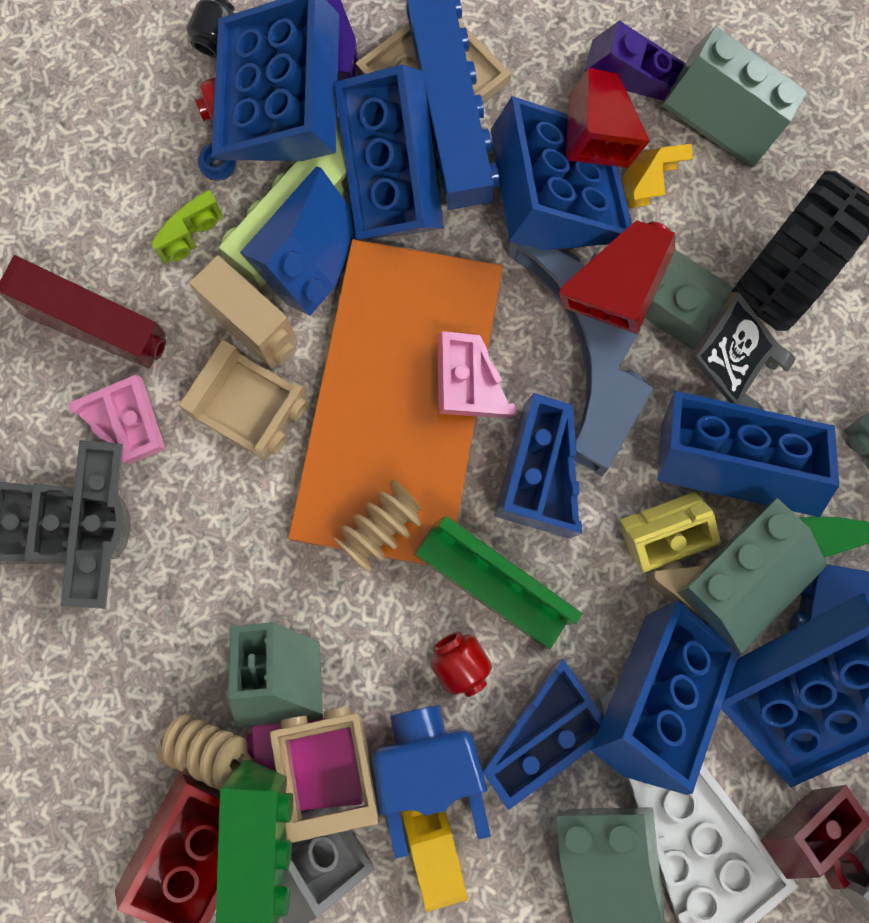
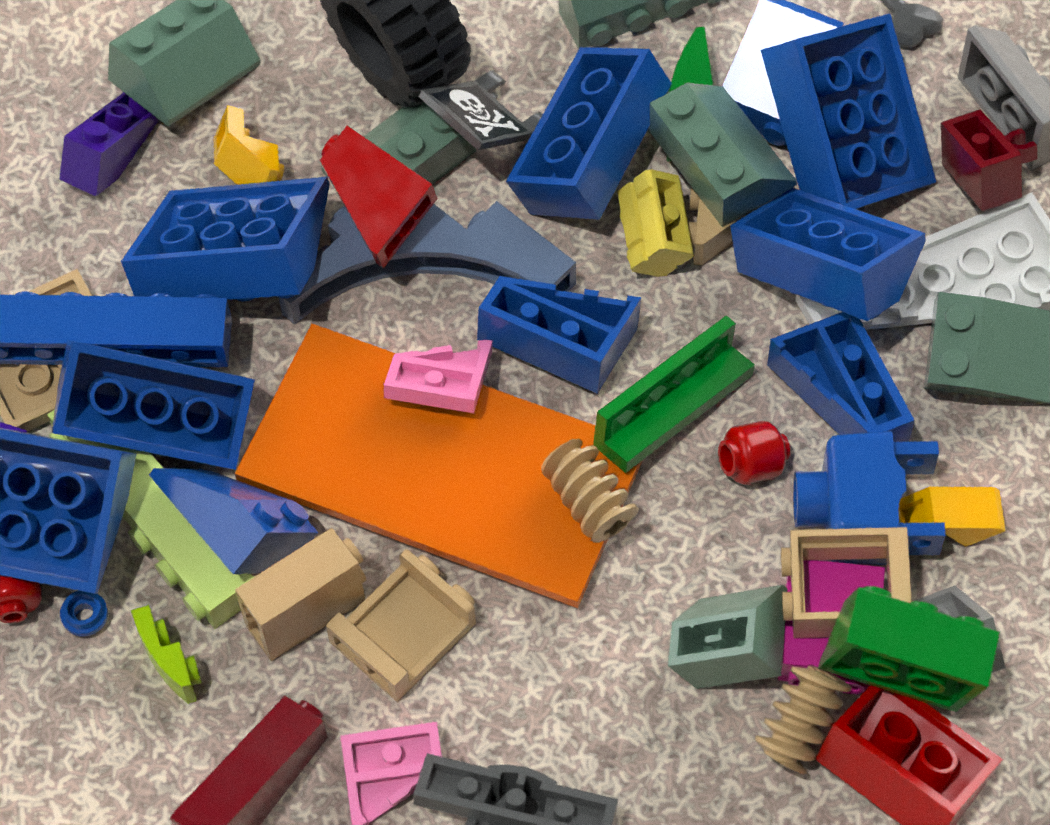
camera: 75 degrees left, 15 degrees down
(603, 122) = (171, 184): red slope -> none

